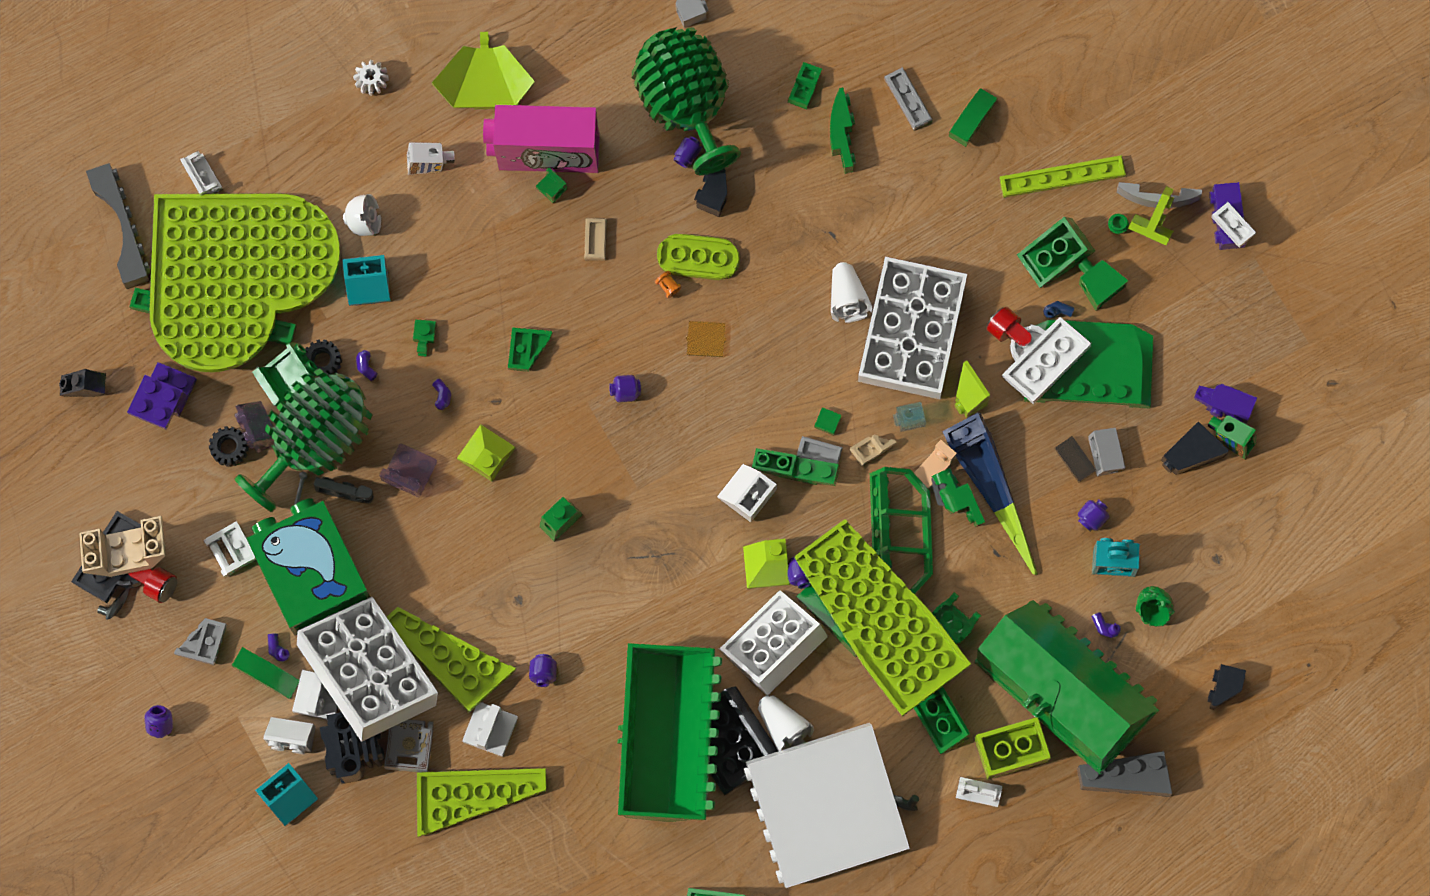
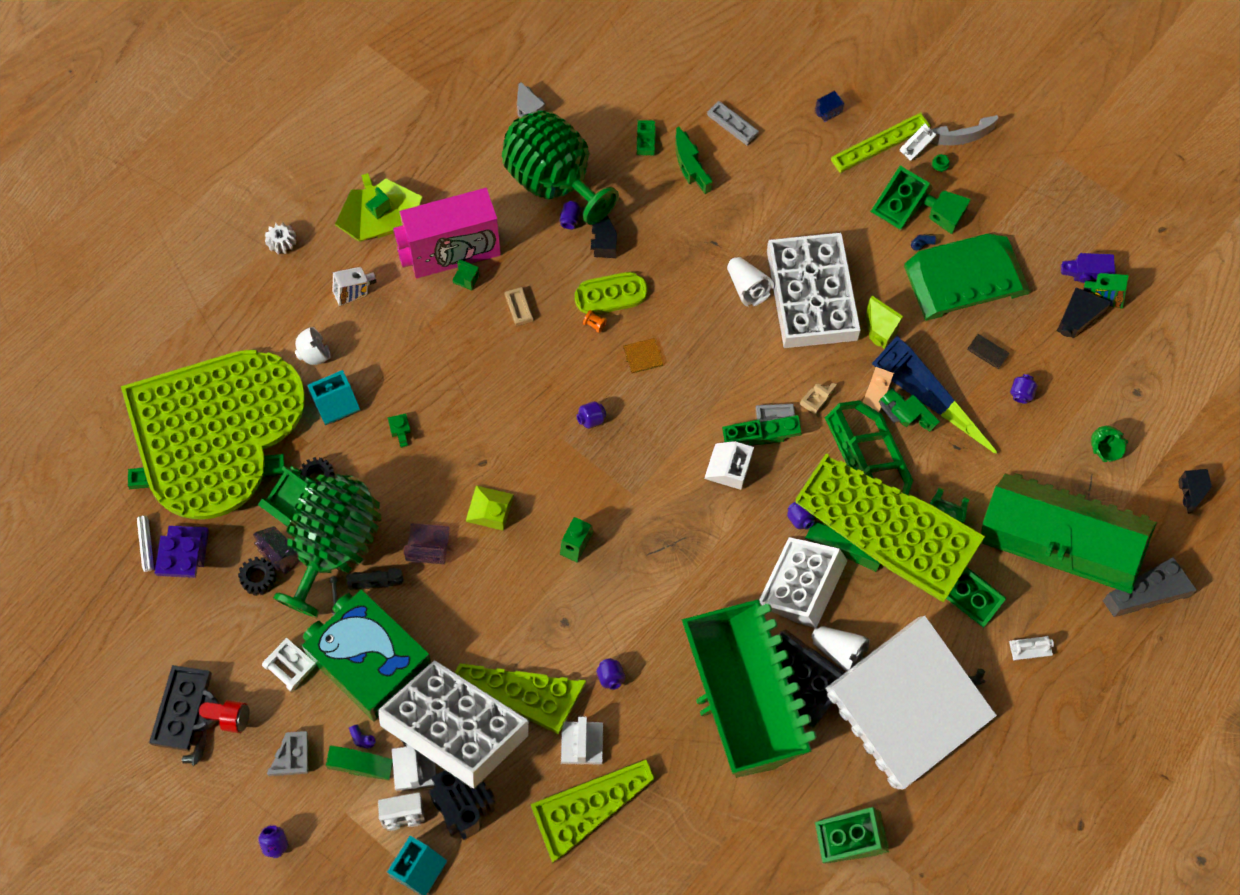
camera: 25 degrees left, 10 degrees down
(82, 384) = (105, 565): black slope -> none
(124, 550) = (191, 696): tan slope -> none
(129, 373) = (145, 543): none -> white axle
(130, 264) = (117, 450): dark grey arch -> none
(201, 174) = (156, 358): white hinge -> none
(363, 365) = (354, 469): dark purple arm -> none
(409, 740) = (512, 778): light grey container -> none
(444, 394) = (435, 470): dark purple arm -> none
(485, 73) = (379, 204): none -> green panel
(526, 347) = (493, 409): green wing -> none
(766, 564) = (769, 518): lime slope -> none
(827, 421) = (772, 387): green tile -> none
(909, 417) = (839, 360): clear light blue brick -> none
(972, 117) = (790, 120): green slope -> none
(1012, 748) = (1044, 599): lime brick -> none
(1021, 115) = (829, 106): none -> clear blue brick
(1038, 354) = (925, 276): white plate -> none
(1100, 192) = (917, 142): none -> white hinge
(1105, 628) = (1073, 477): dark purple arm -> none
(1106, 451) = (1011, 336): light grey hinge -> none
(1116, 557) = (1060, 414): teal brick -> none
(1153, 228) = (972, 146): lime bracket -> none
(1219, 197) = (1025, 130): dark purple brick -> none
(1233, 224) = (1035, 131): white plate -> none

